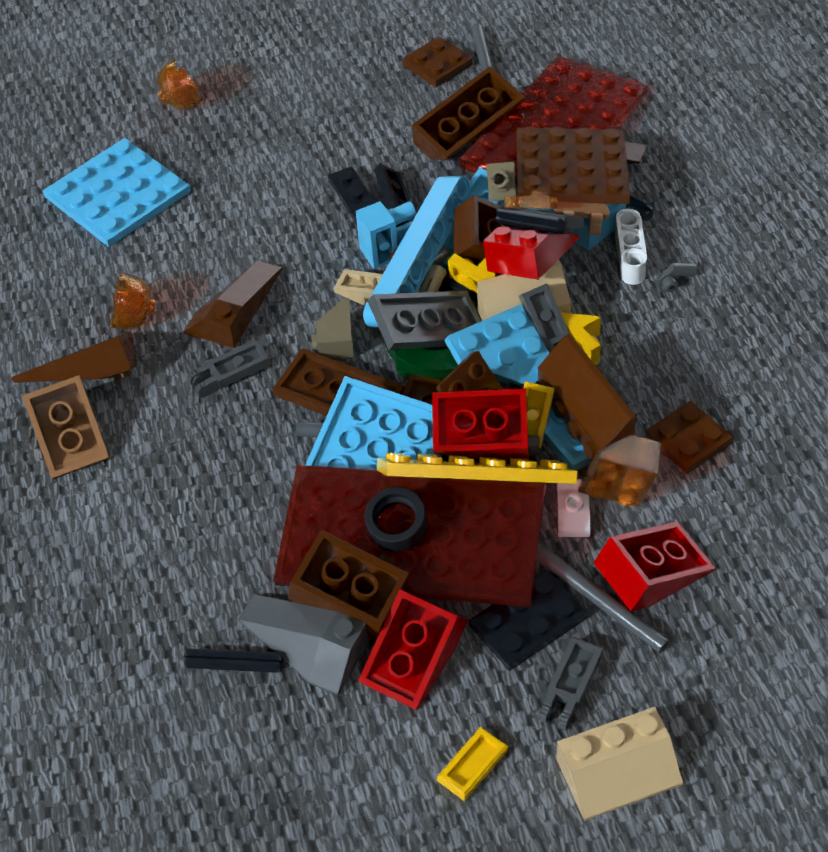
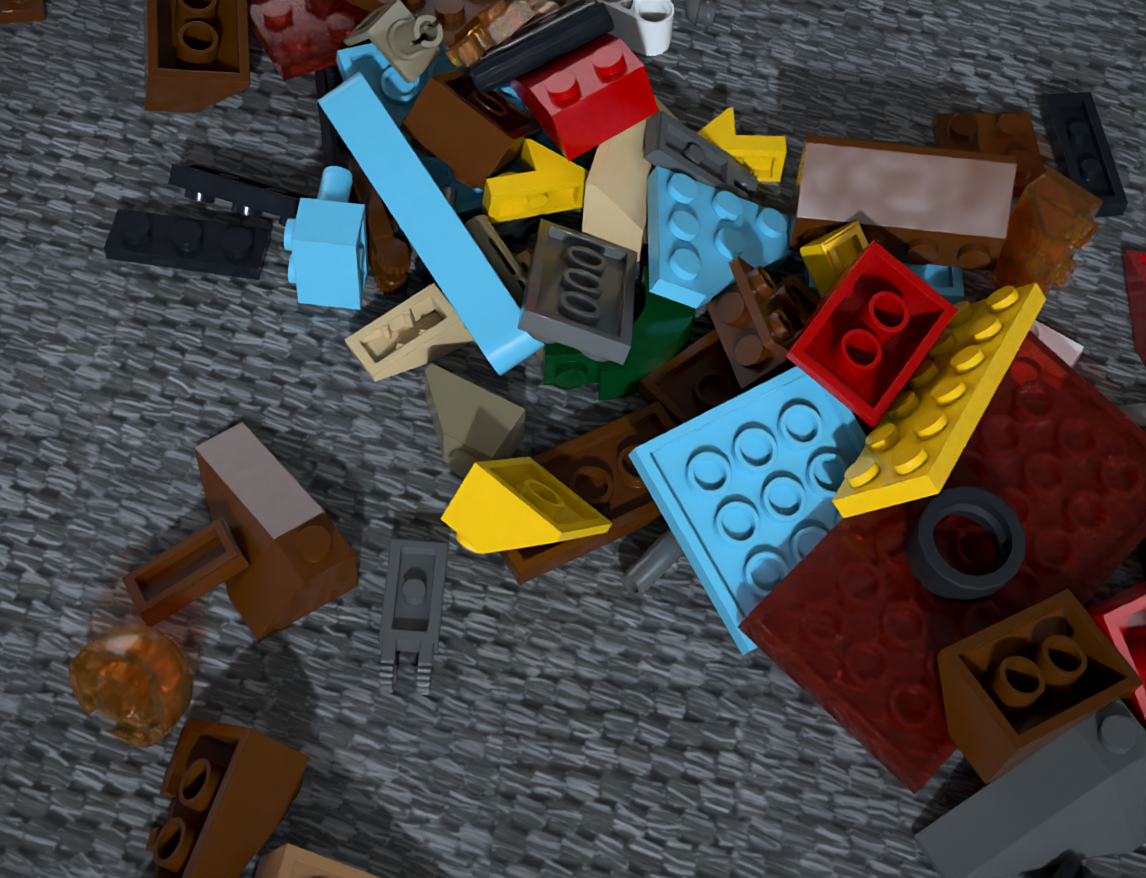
camera: 65 degrees left, 5 degrees up
(191, 289) = (185, 572): none -> reddish brown tile
(297, 363) = (518, 506): none -> yellow slope
(725, 472) = (1083, 148): none -> black plate

